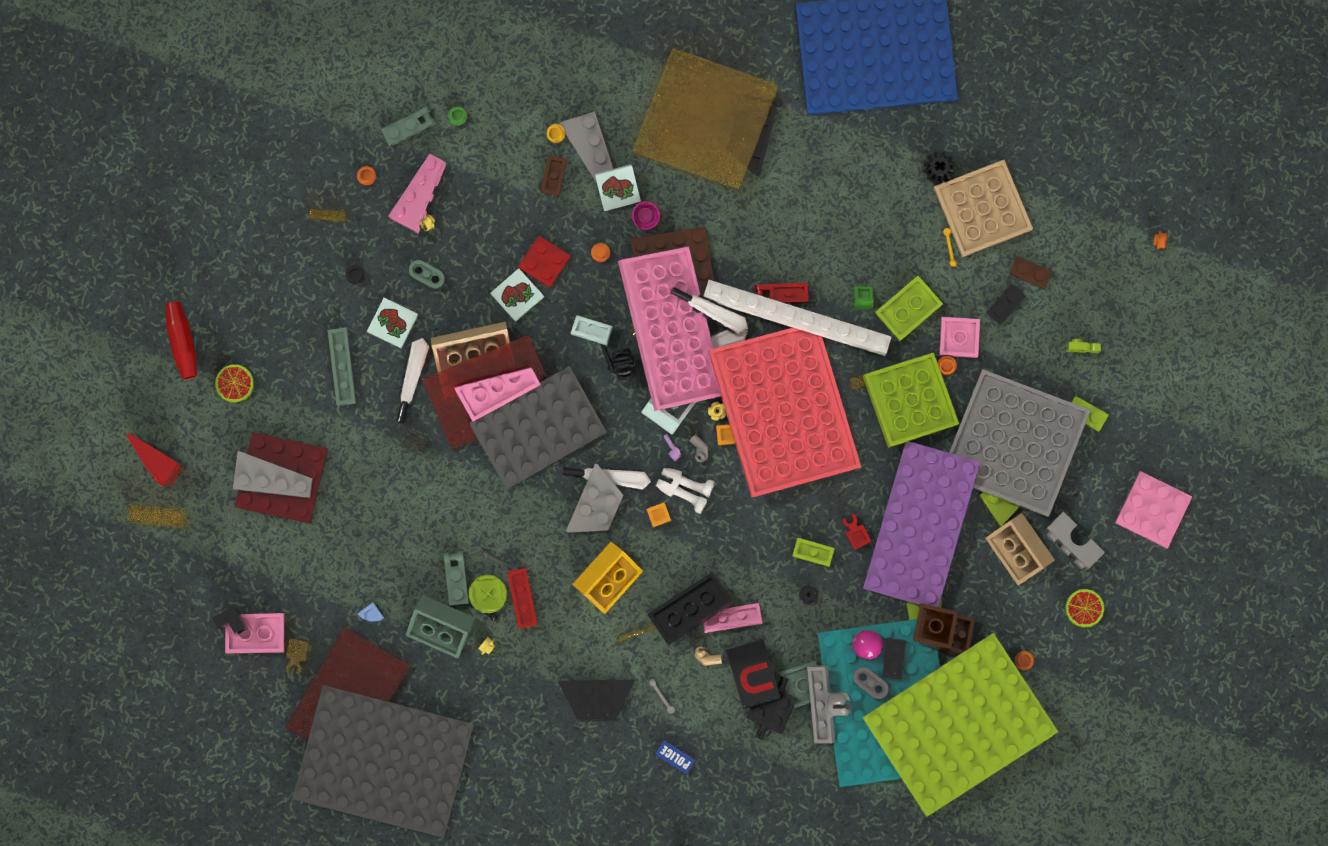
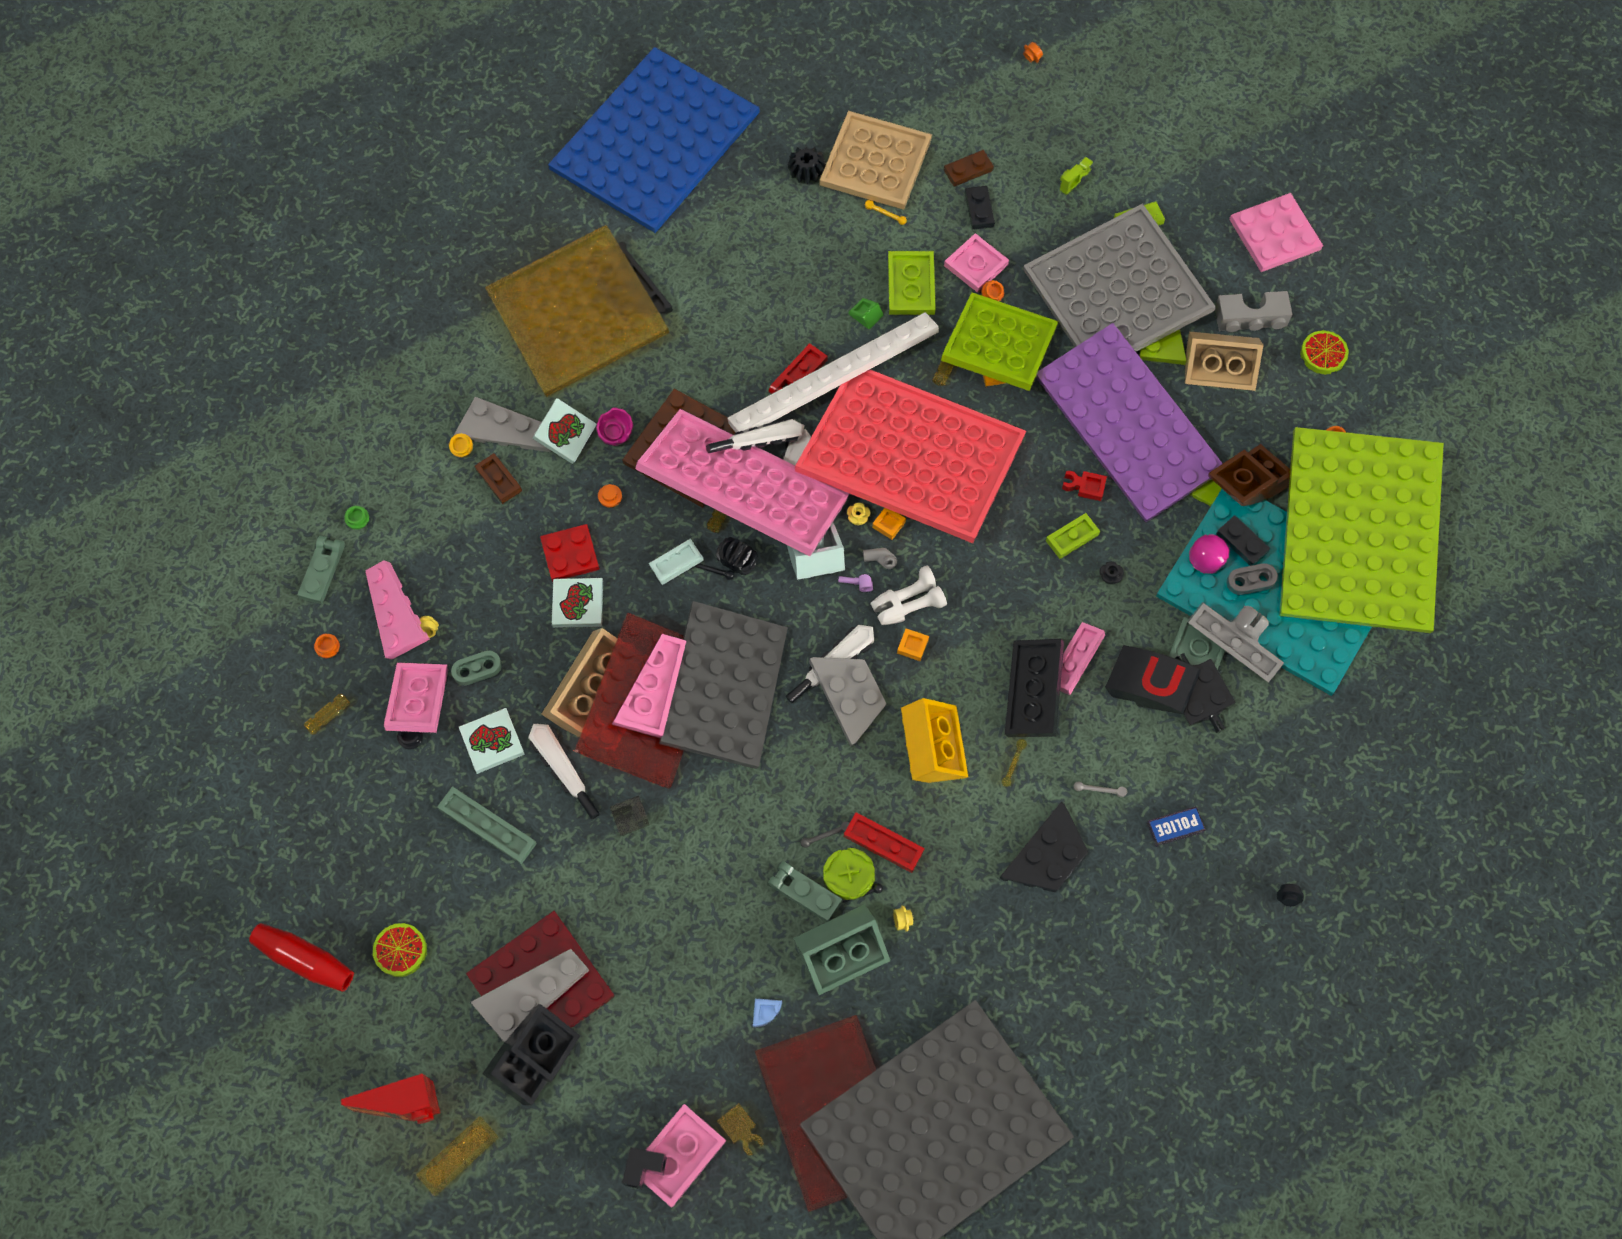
camera: 45 degrees left, 15 degrees down
(239, 509) = (532, 1055): none -> black slope
(379, 258) = (416, 697): none -> bright pink plate
(705, 658) = (1098, 716): tan arm -> none

